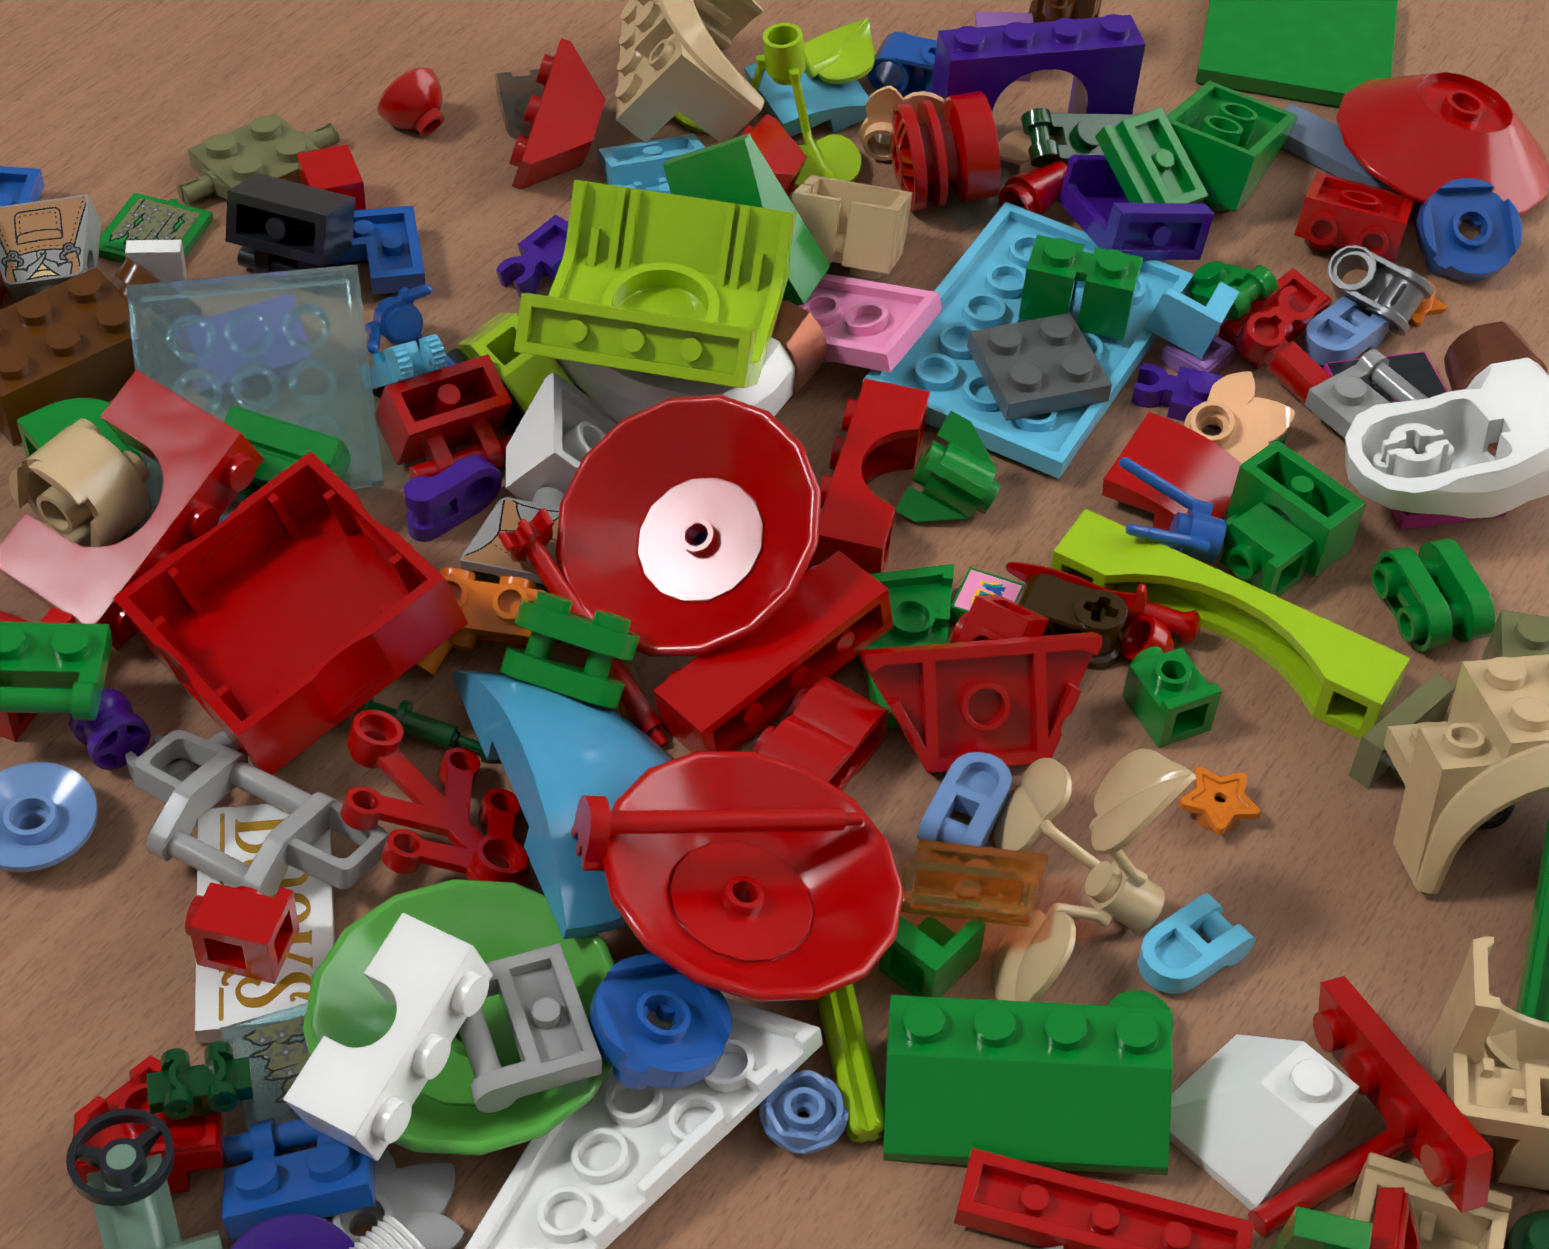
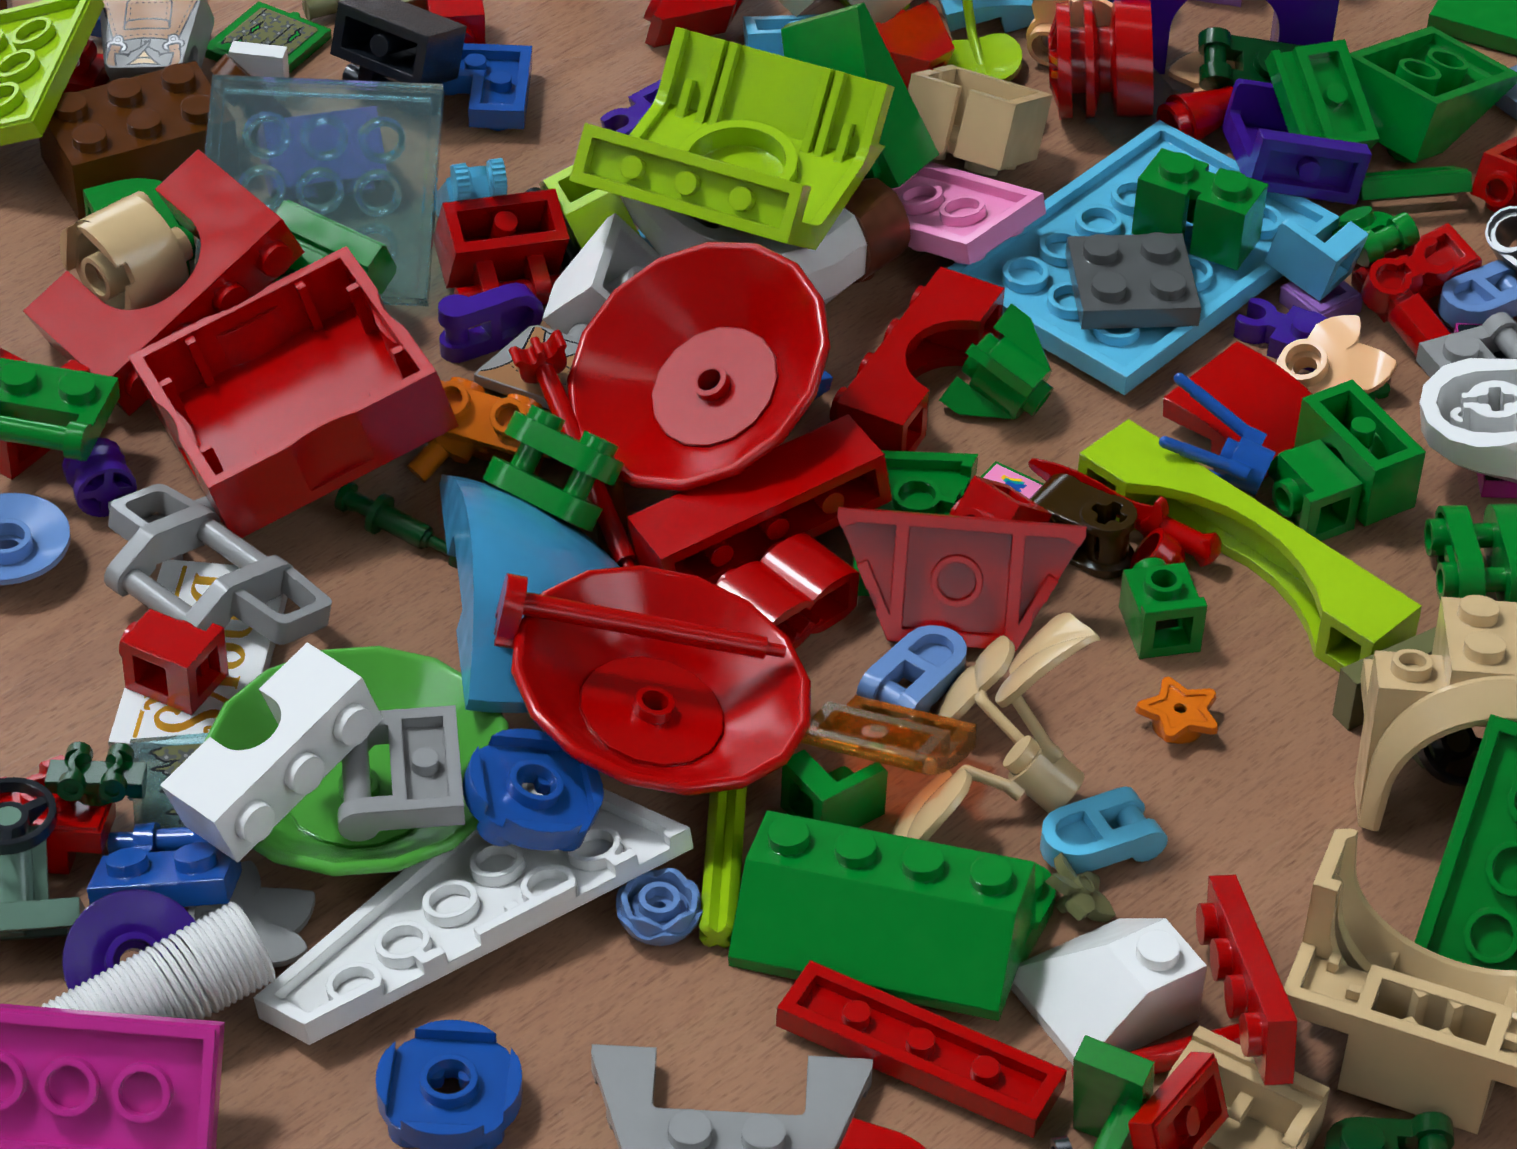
camera: 15 degrees right, 5 degrees down
(398, 319) = (482, 146): blue plant -> none
(495, 858) = (343, 524): red plant -> none
(1194, 1016) = (1079, 893): none -> olive plant
(1248, 230) = (1415, 182): none -> green tile

